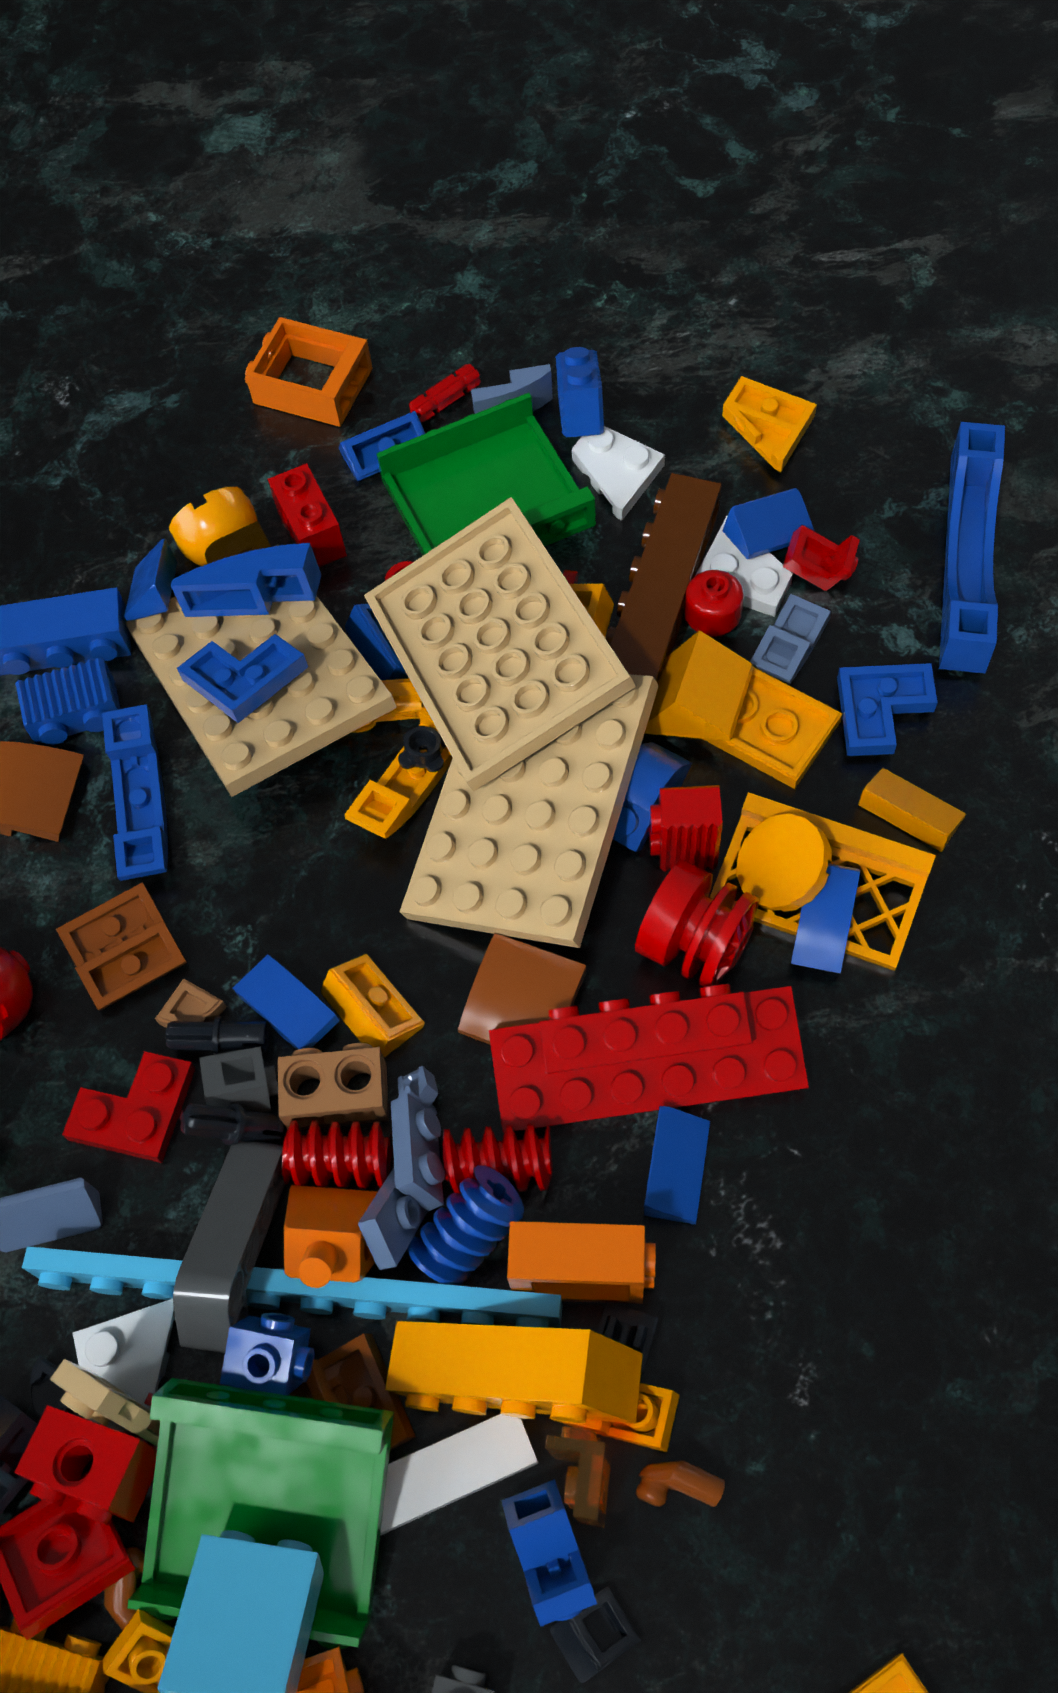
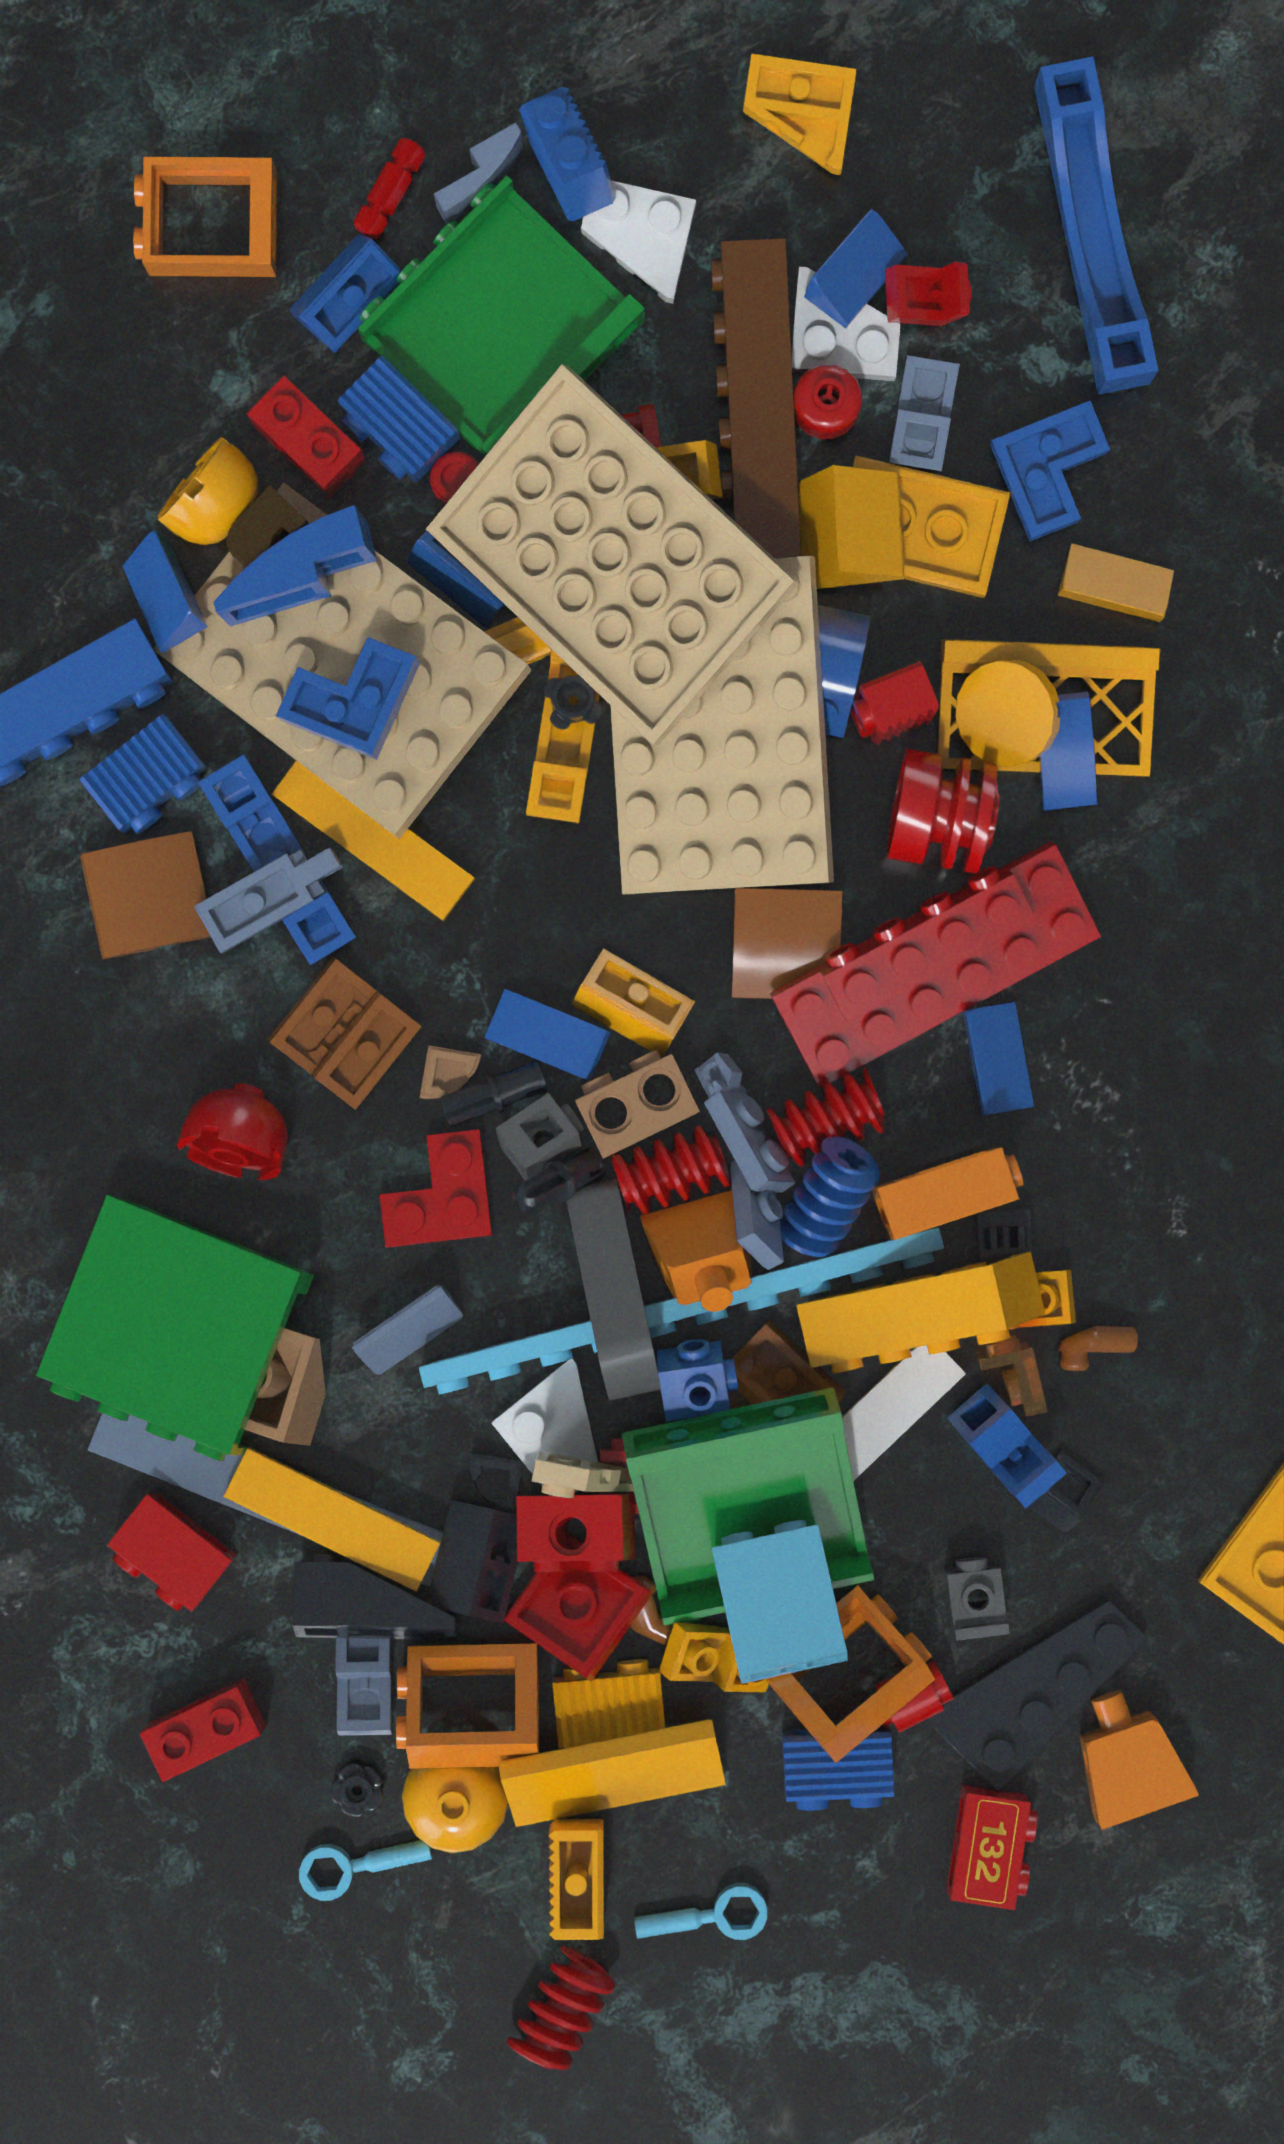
camera: 25 degrees left, 25 degrees up
(109, 812) = (265, 897): none -> sand blue hinge
(226, 817) = (404, 862): none -> light orange tile
(379, 526) = (397, 421): none -> blue brick

